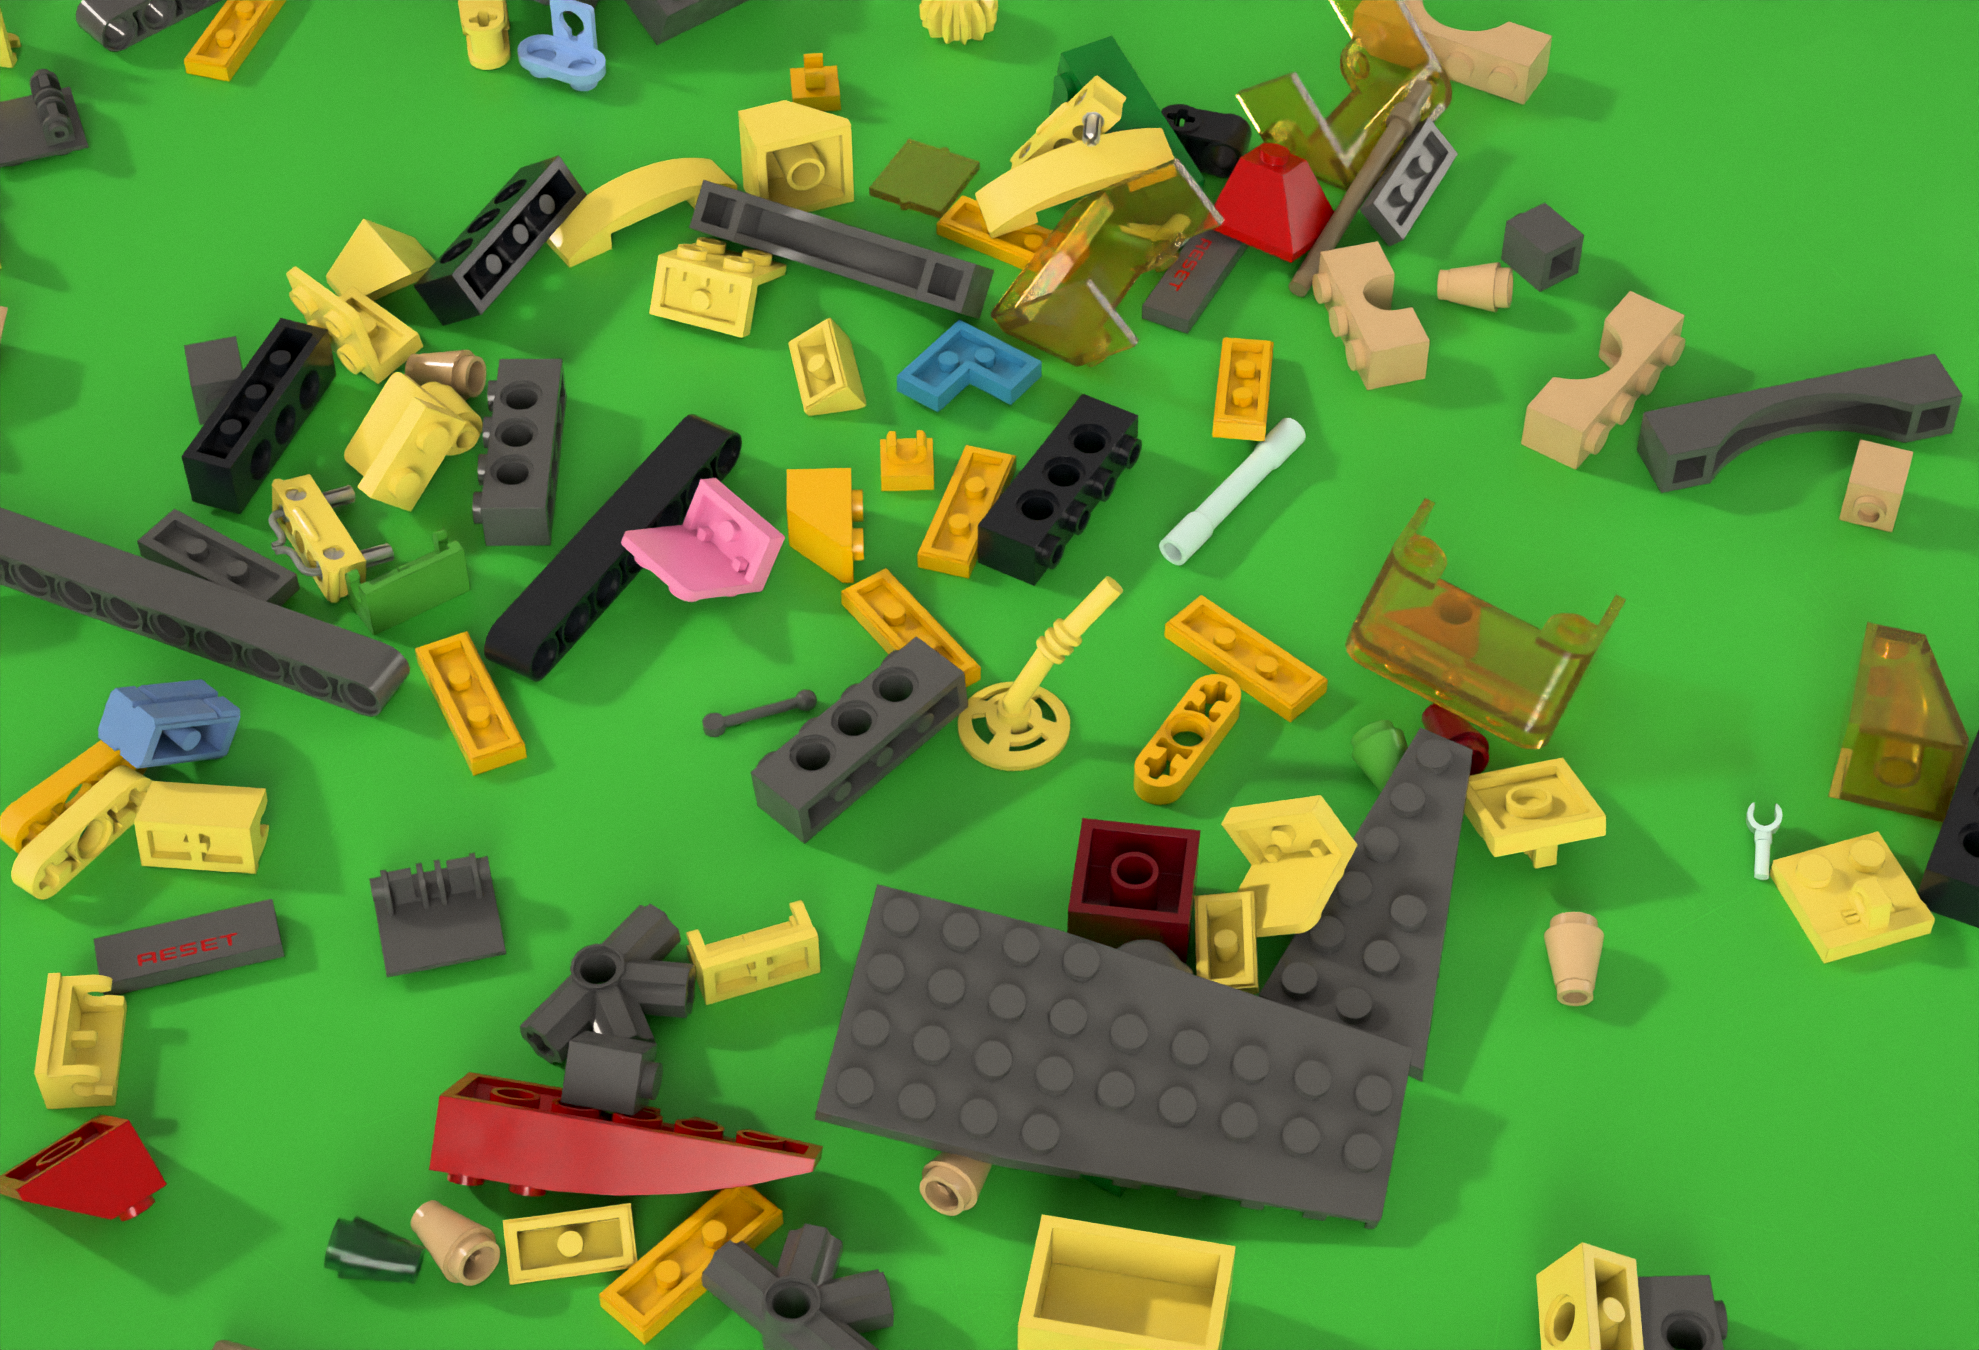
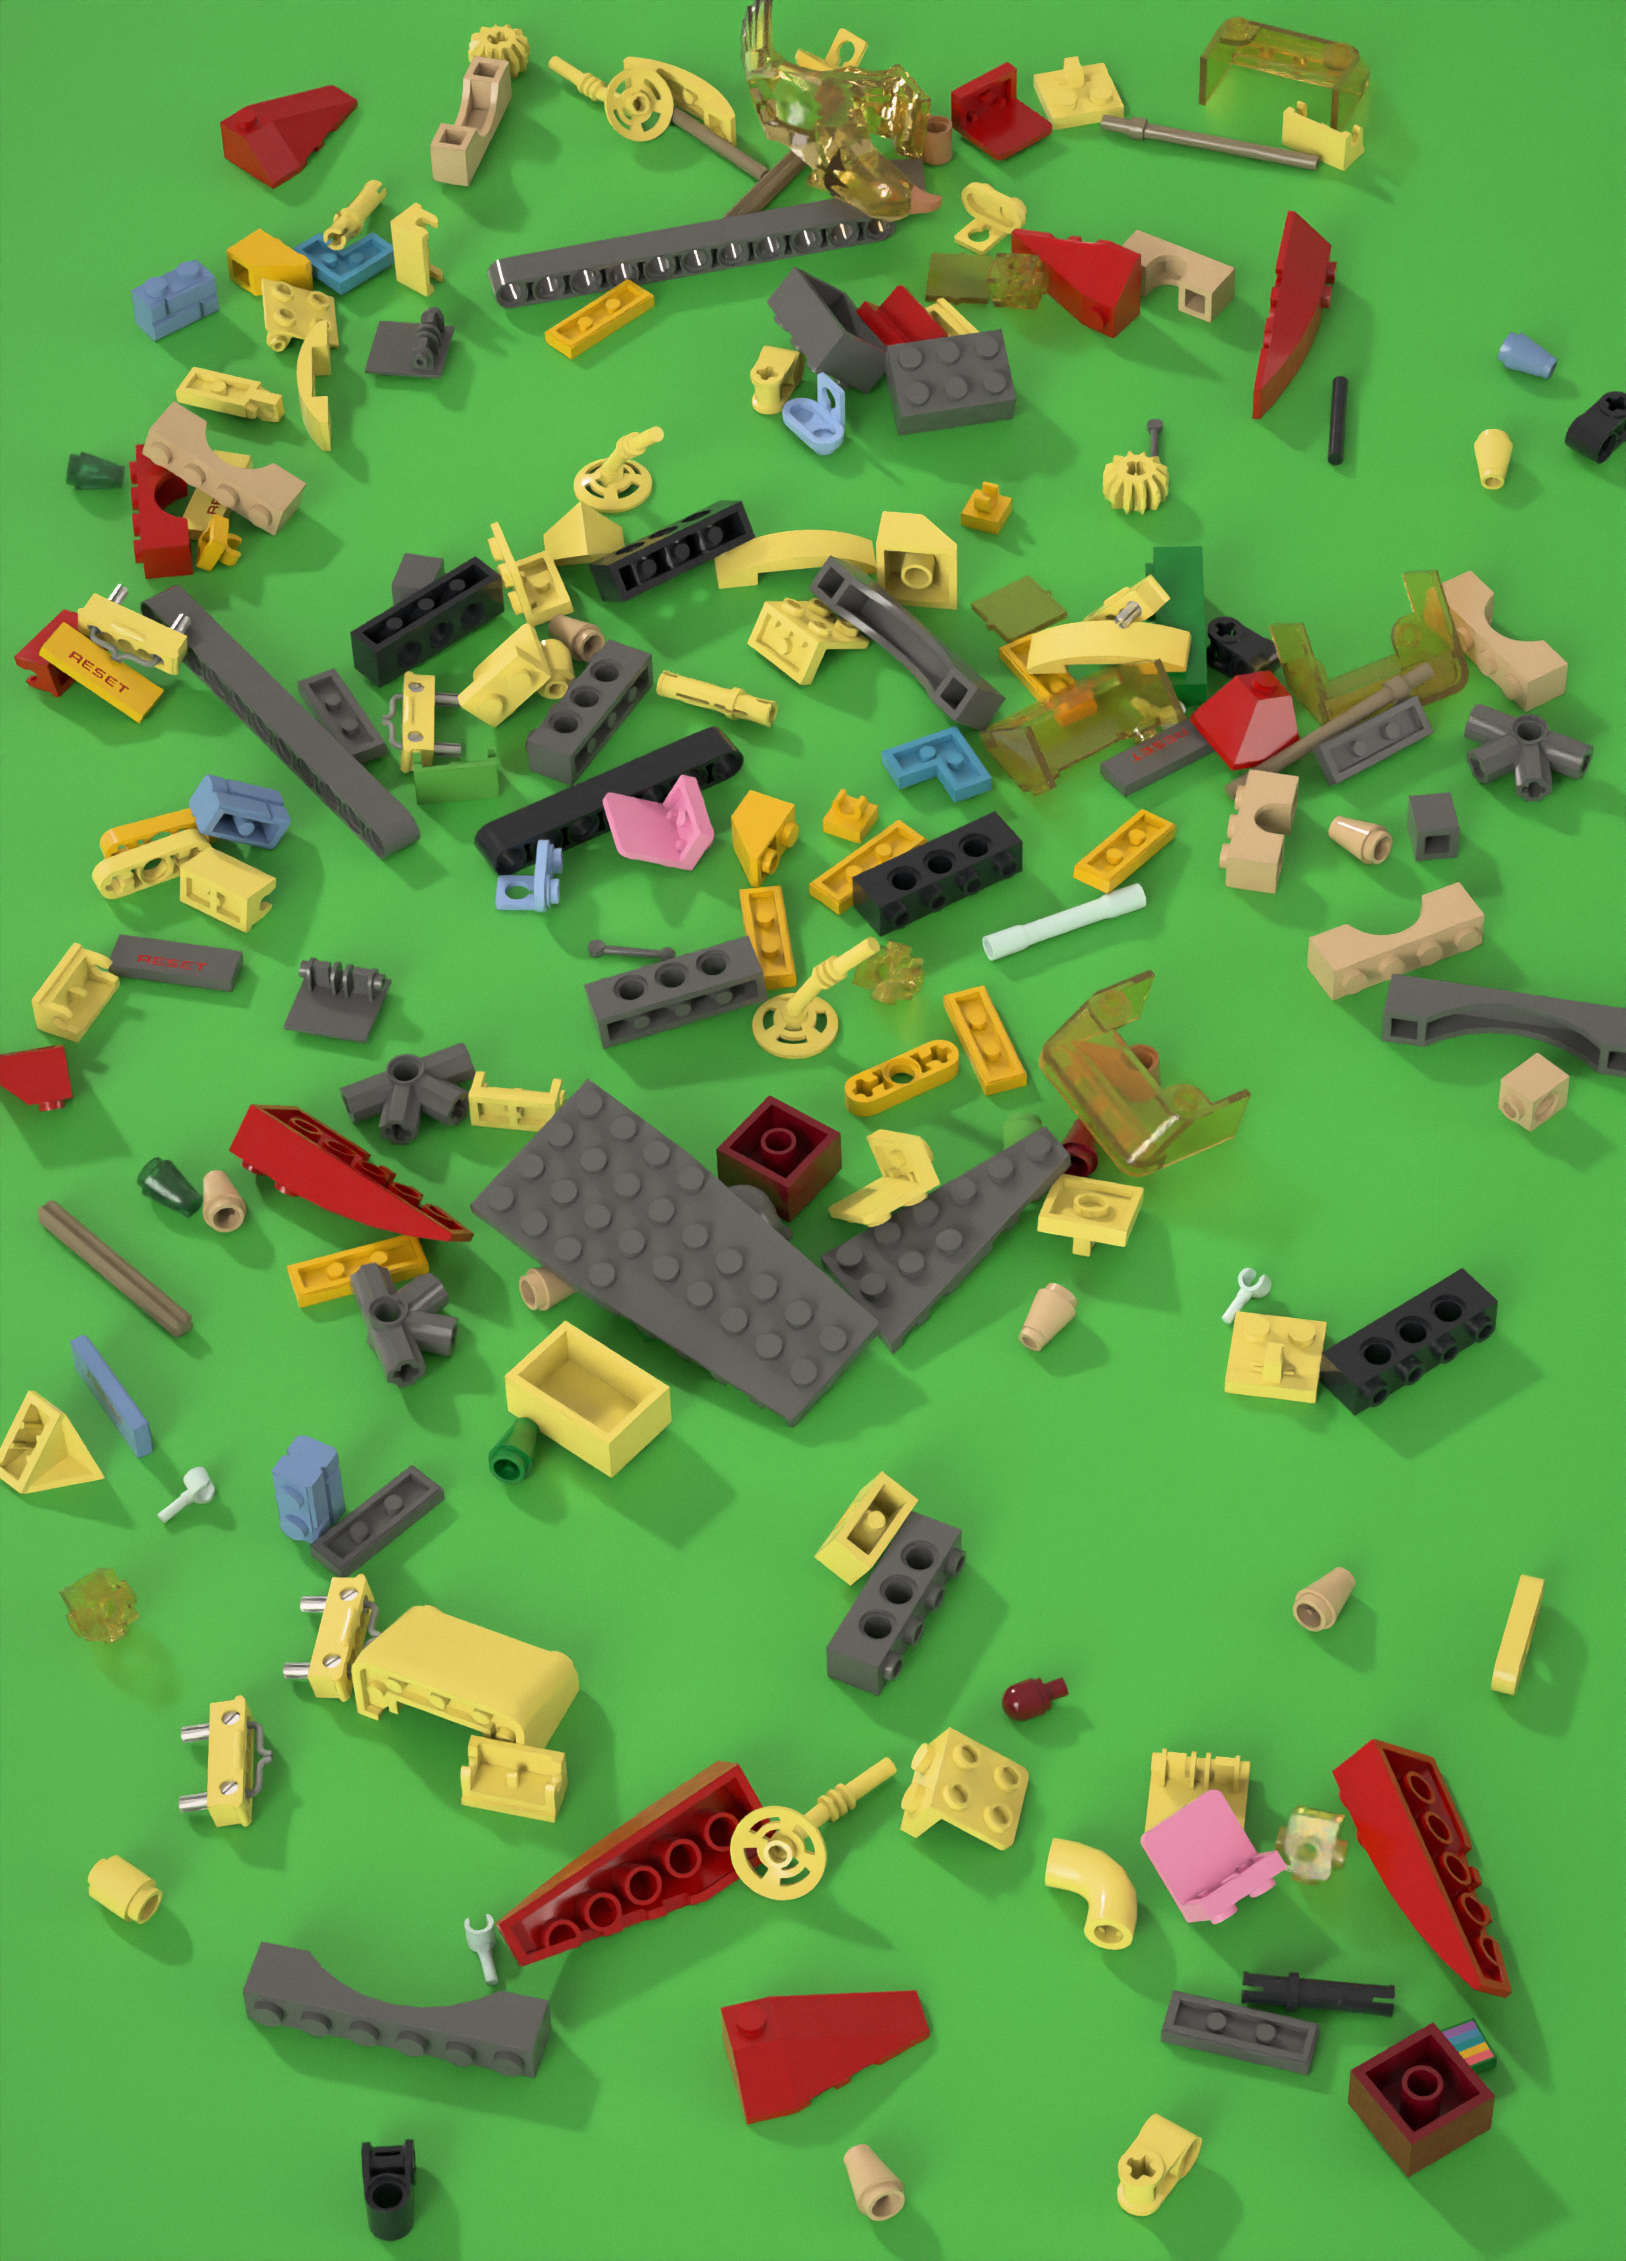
camera: 30 degrees right, 0 degrees up
(371, 179) = (613, 477): none -> light yellow dish
(470, 703) = (447, 873): yellow tile -> none
(570, 1243) = (291, 1230): light yellow slope -> none
(608, 674) = (545, 889): none -> light blue bracket
(611, 1073) = (370, 1136): dark grey brick -> none
(665, 384) = (732, 703): none -> light yellow pin
(826, 370) = (844, 730): light yellow slope -> none
(1118, 622) = (891, 973): none -> clear yellow brick
(1227, 939) = (817, 1214): light yellow slope -> none
(1568, 135) = (1525, 748): none -> dark grey piece
(1898, 729) = (1379, 1249): clear yellow slope -> none

